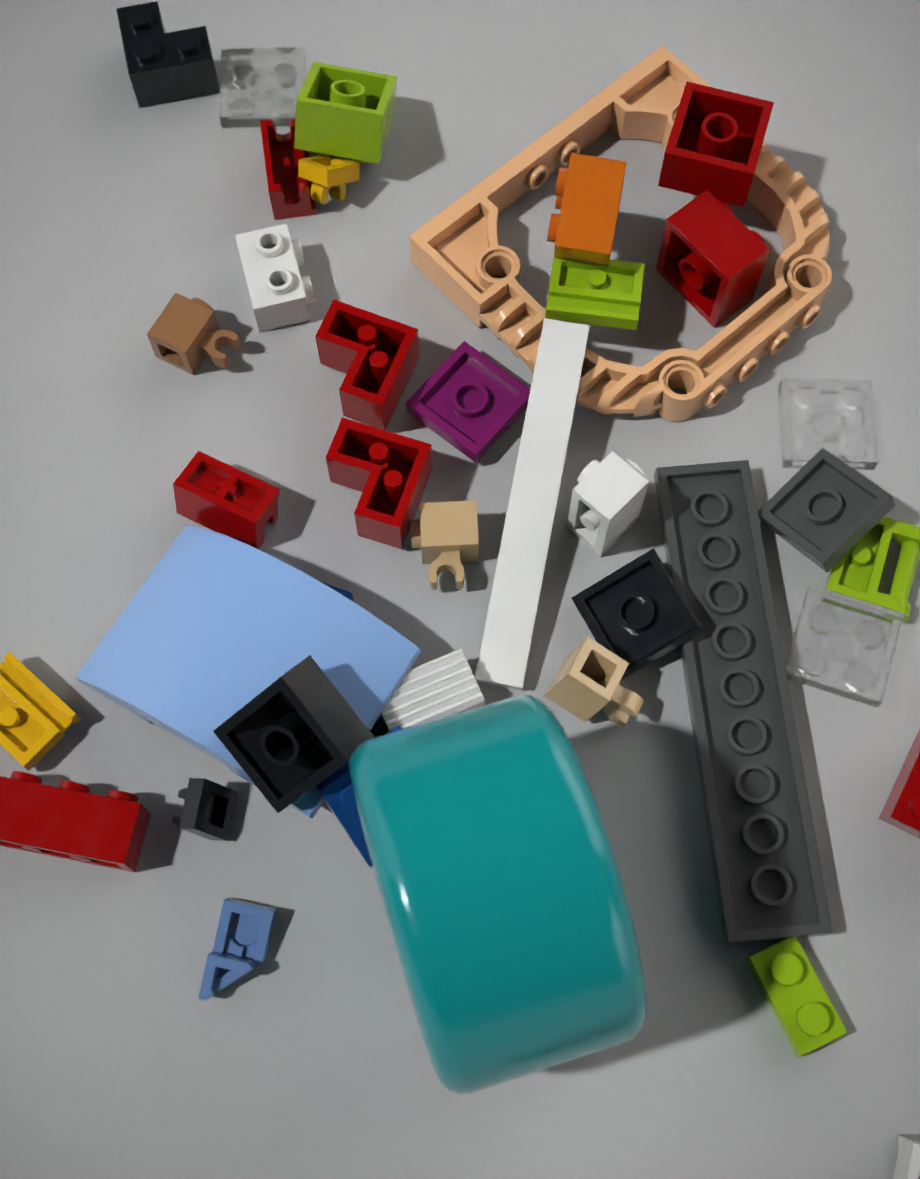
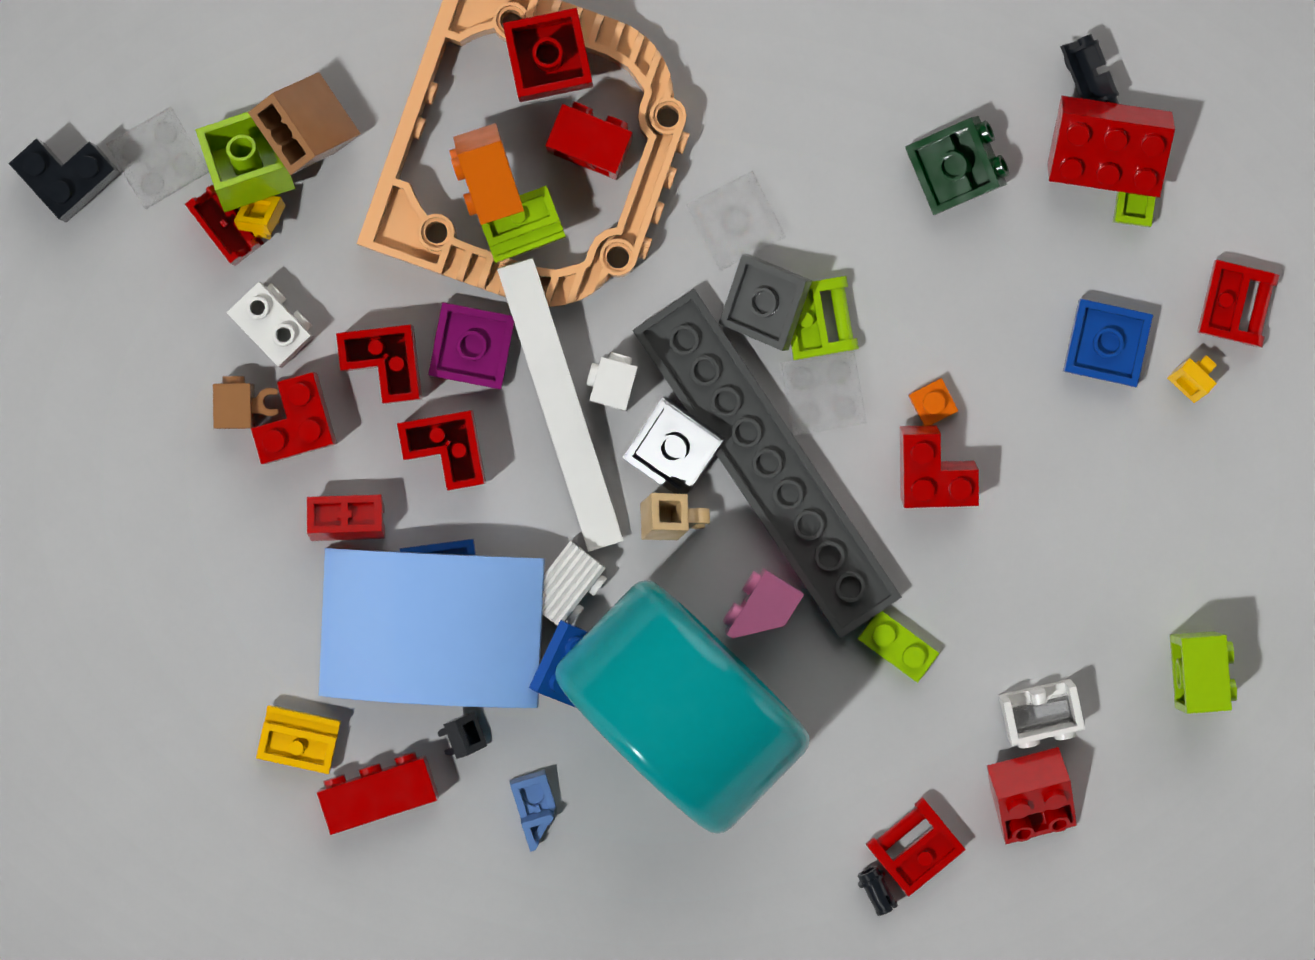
camera: 30 degrees left, 20 degrees up
(240, 387) = (306, 424): none -> red brick
(293, 734) = (502, 668): black slope -> none
(424, 101) = (304, 123): none -> medium nougat brick
(446, 538) = (514, 460): tan brick -> none
(661, 840) = (765, 607): none -> bright pink slope

